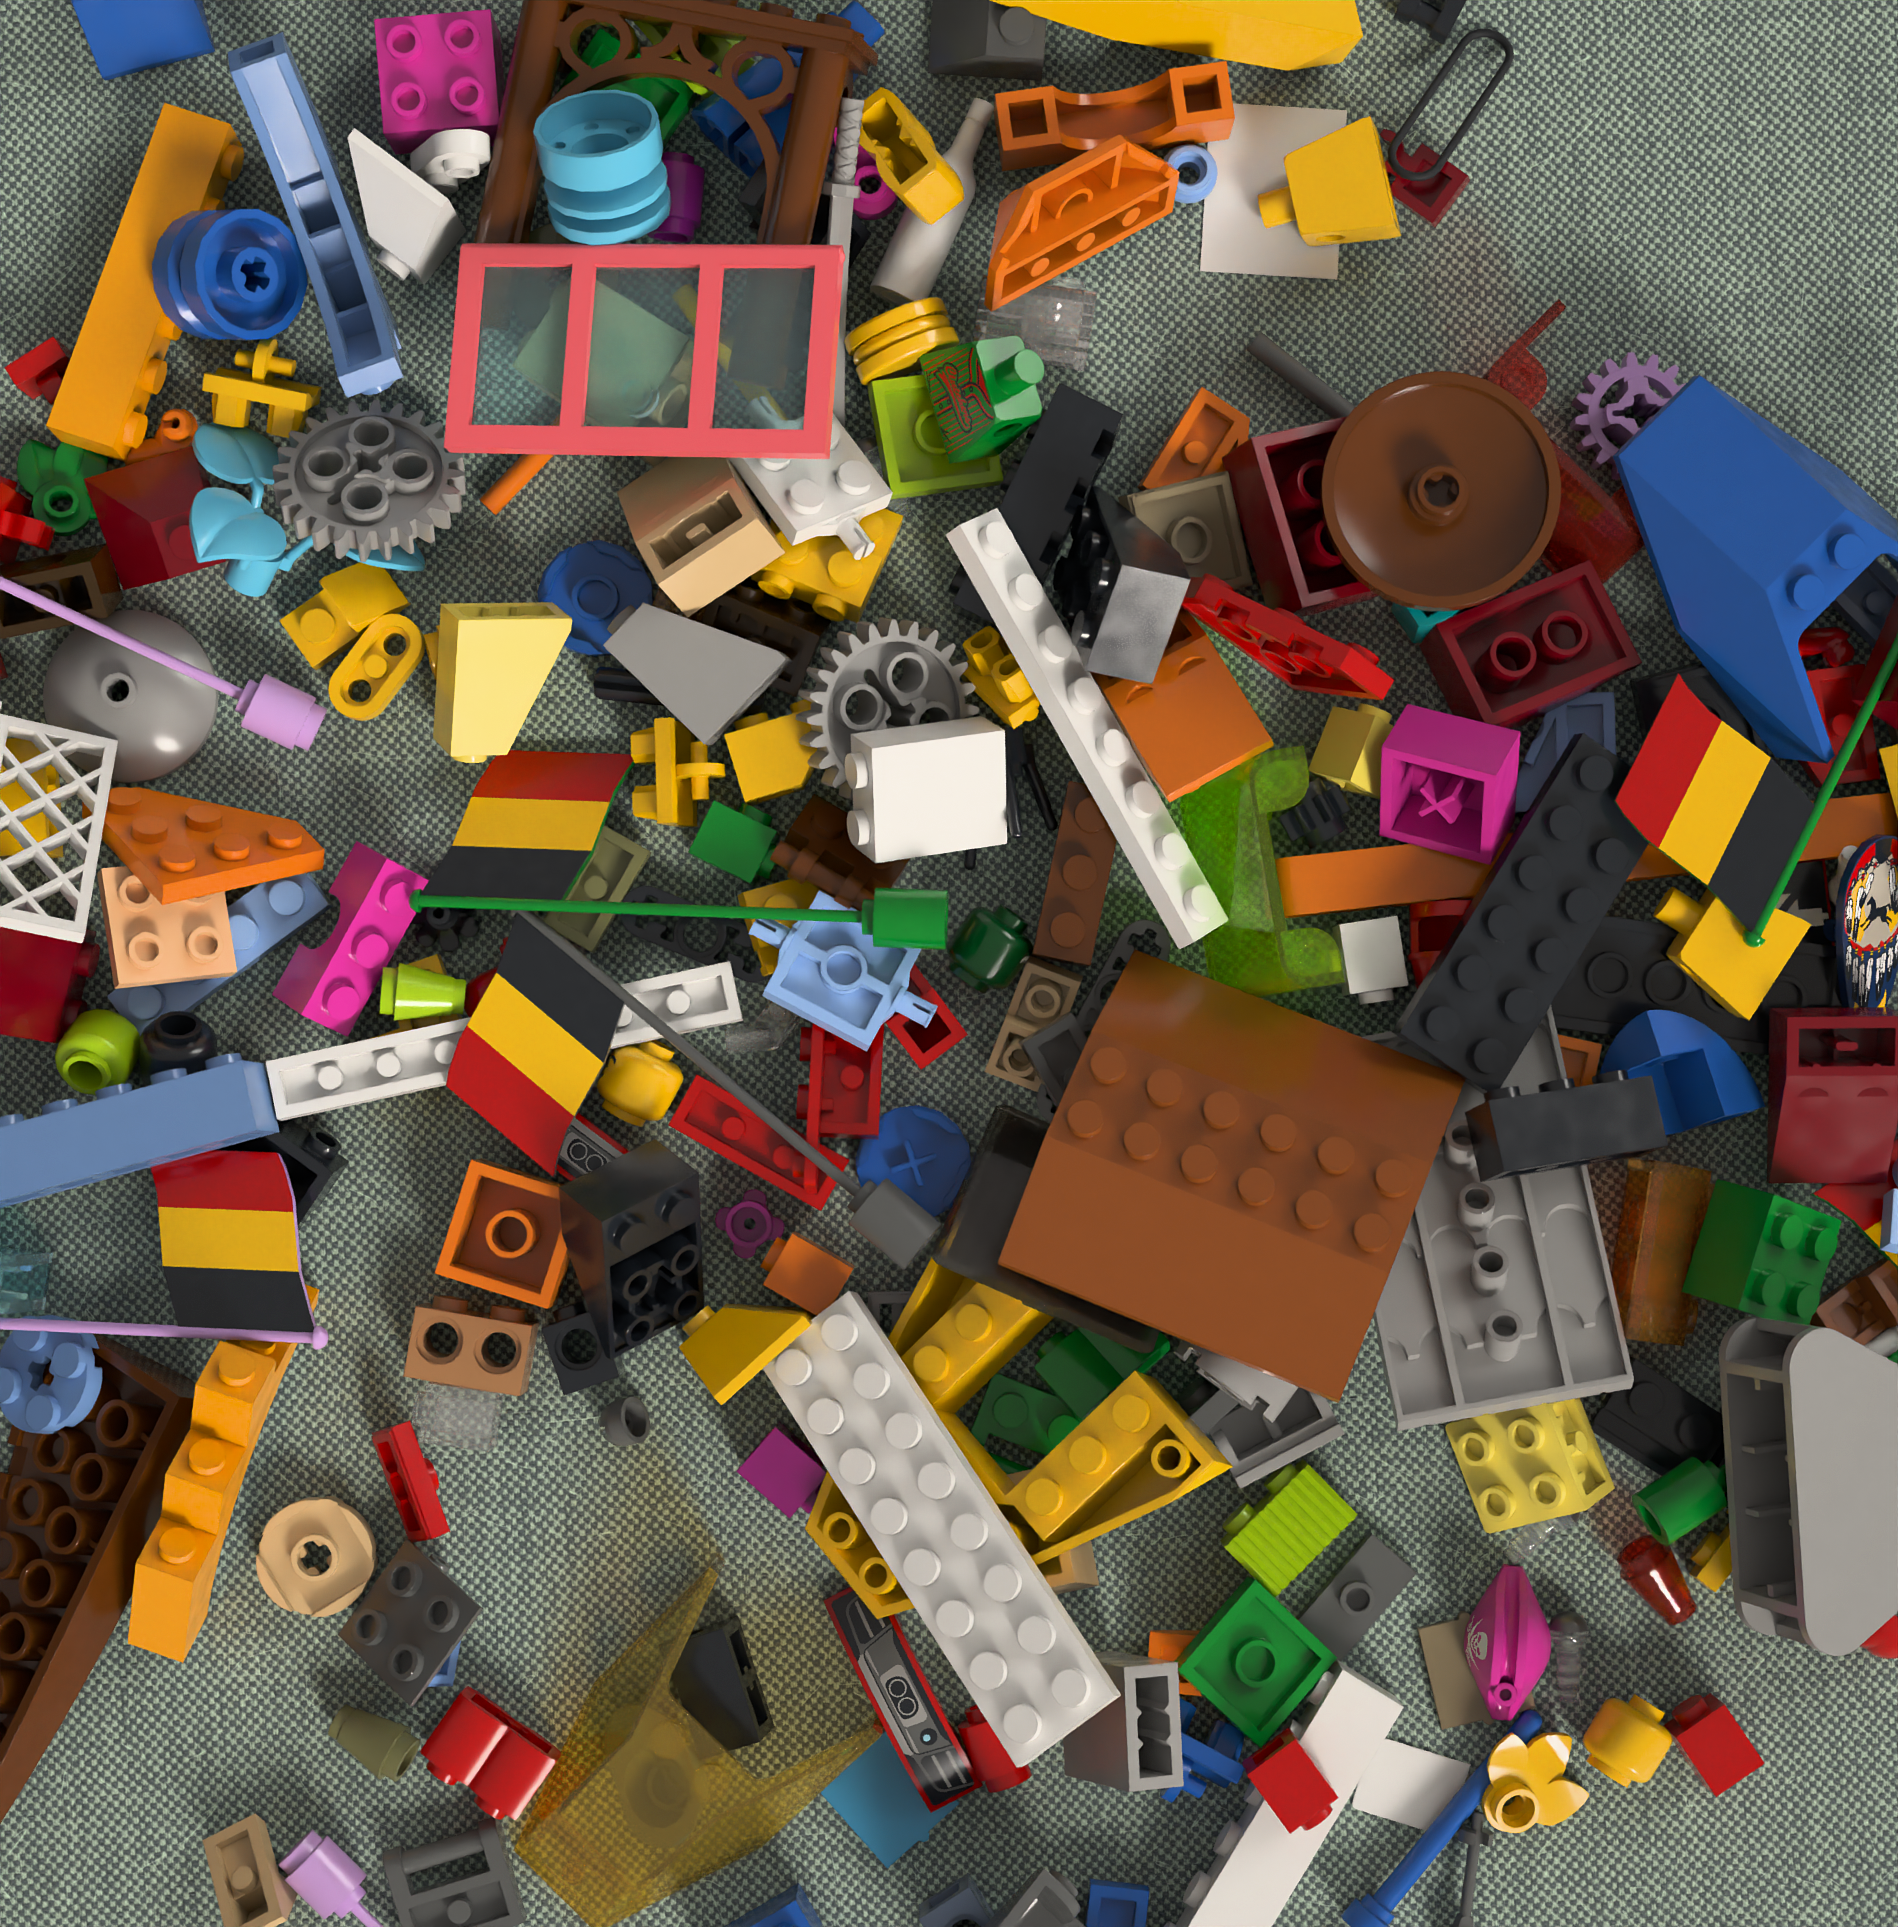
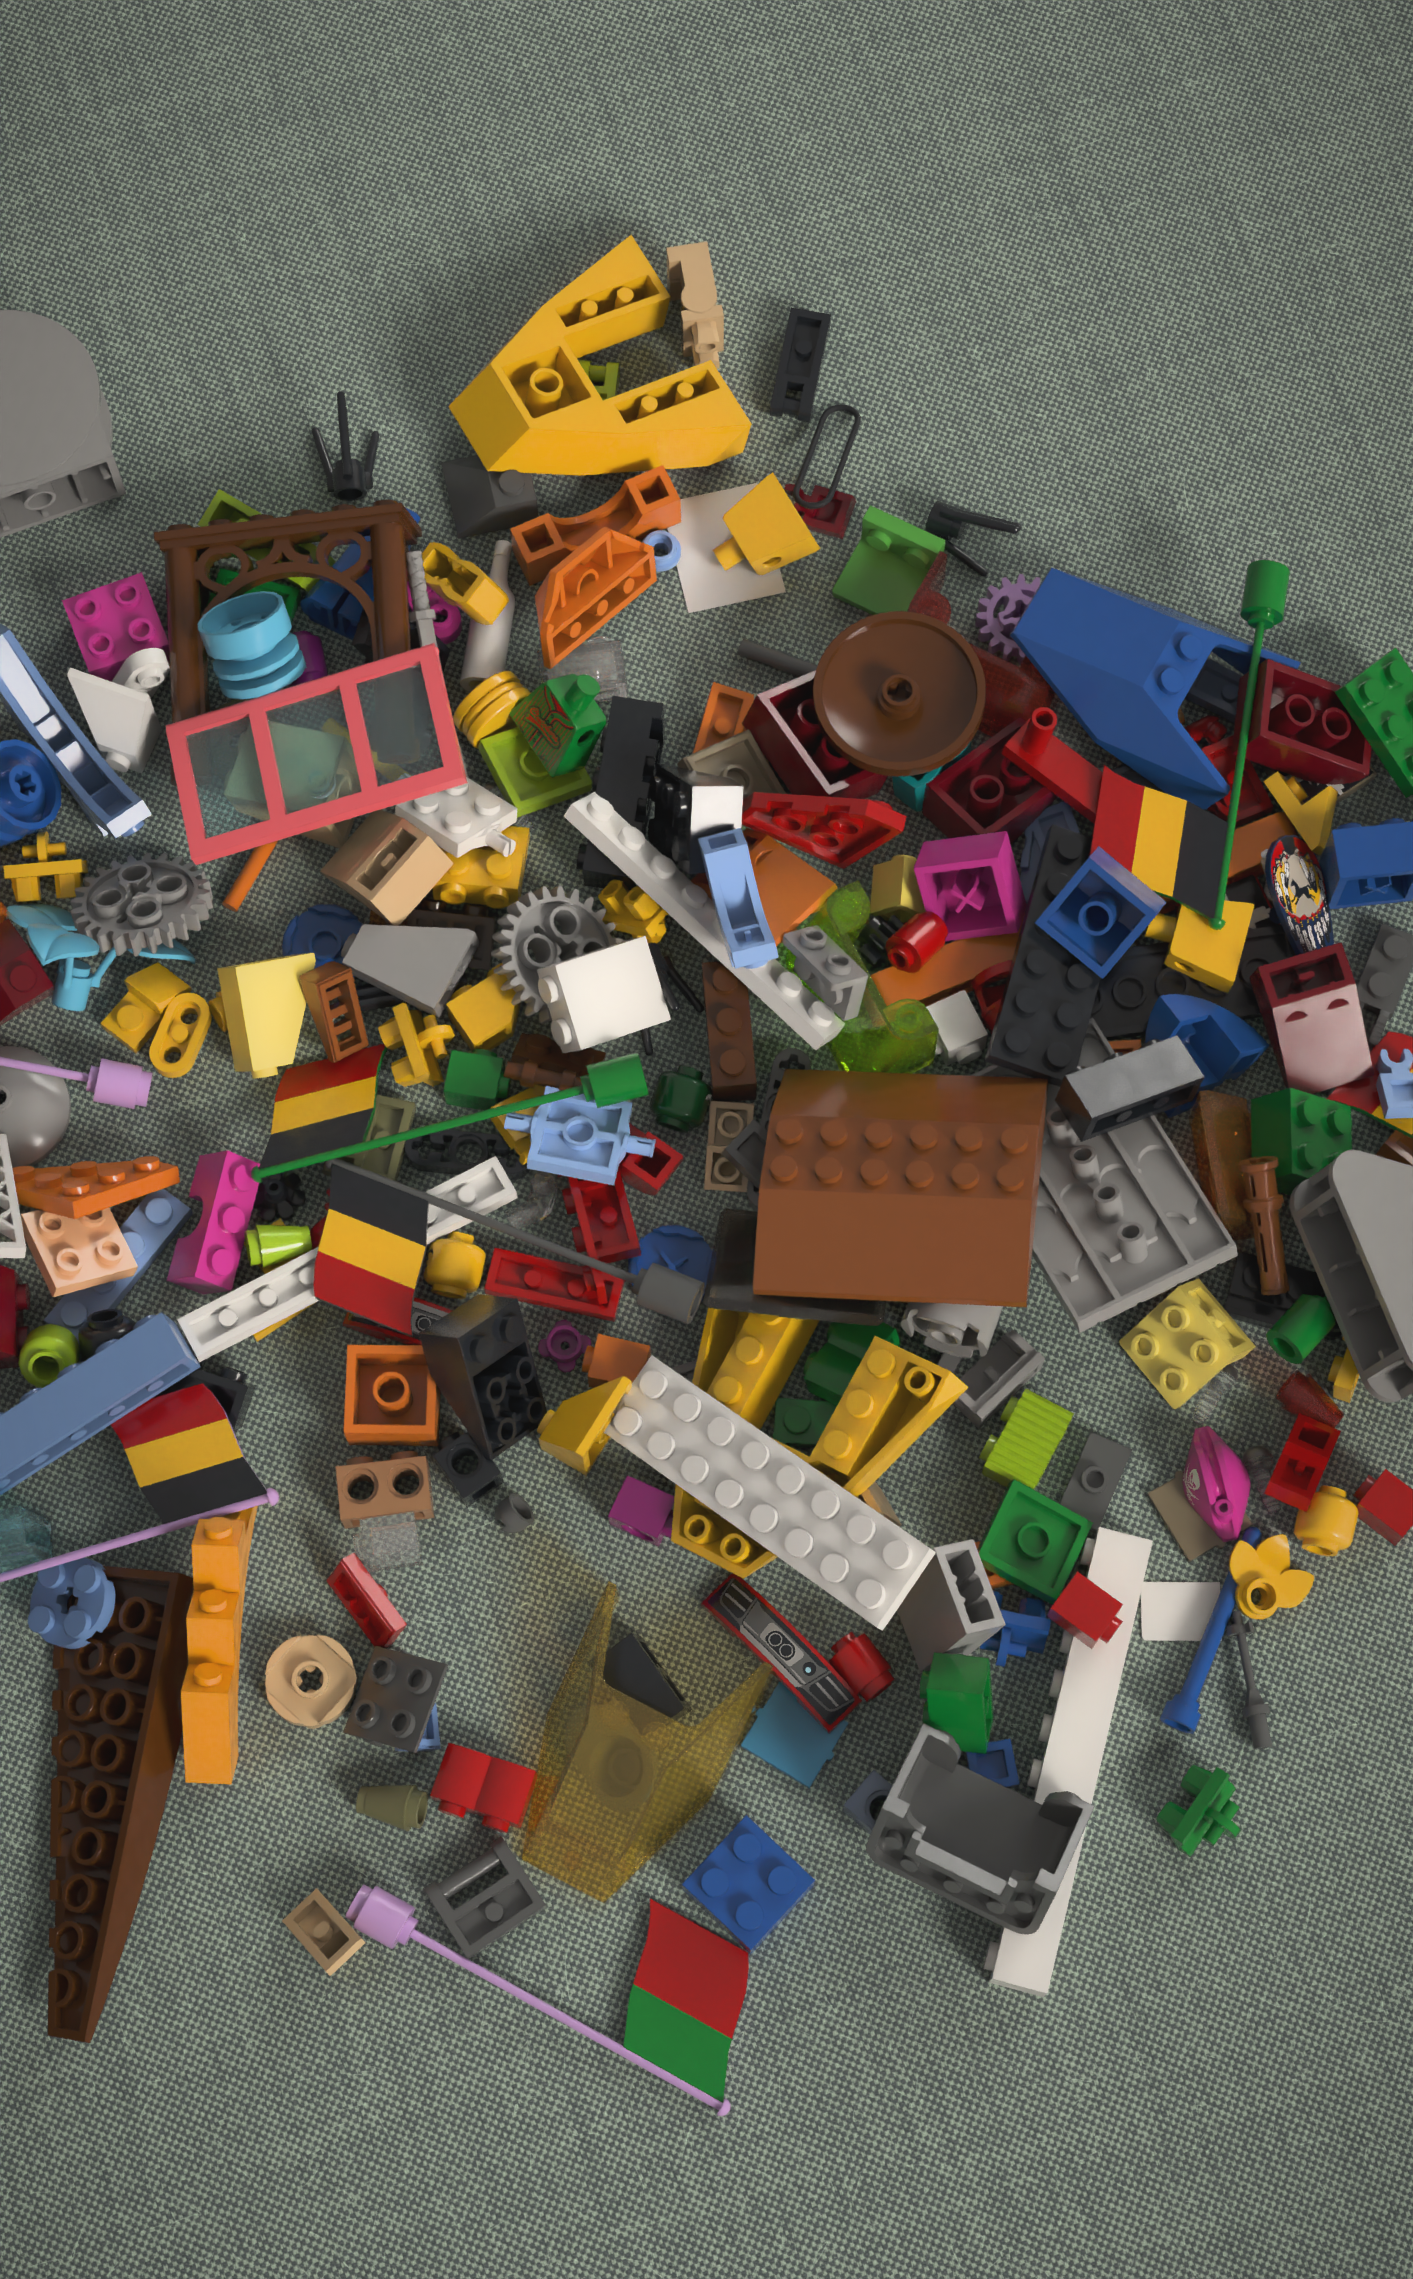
camera: 15 degrees left, 15 degrees down
(570, 665) = (321, 986): none -> dark orange slope
(1097, 1839) = (959, 1699): none -> green brick
(1135, 737) = (737, 899): none -> light blue arch
(1226, 851) = (827, 970): none -> light grey bracket
(1355, 838) = (916, 941): none -> red brick
(1482, 292) = (887, 564): none -> bright green bracket
(1584, 247) = (949, 523): none -> black plant
(1608, 882) = (1100, 912): none -> blue slope
(1615, 650) = (1055, 763): none -> red piece
(1621, 1658) = (1302, 1462): none -> red brick
(1686, 1331) = (1263, 1205): none -> dark orange pin

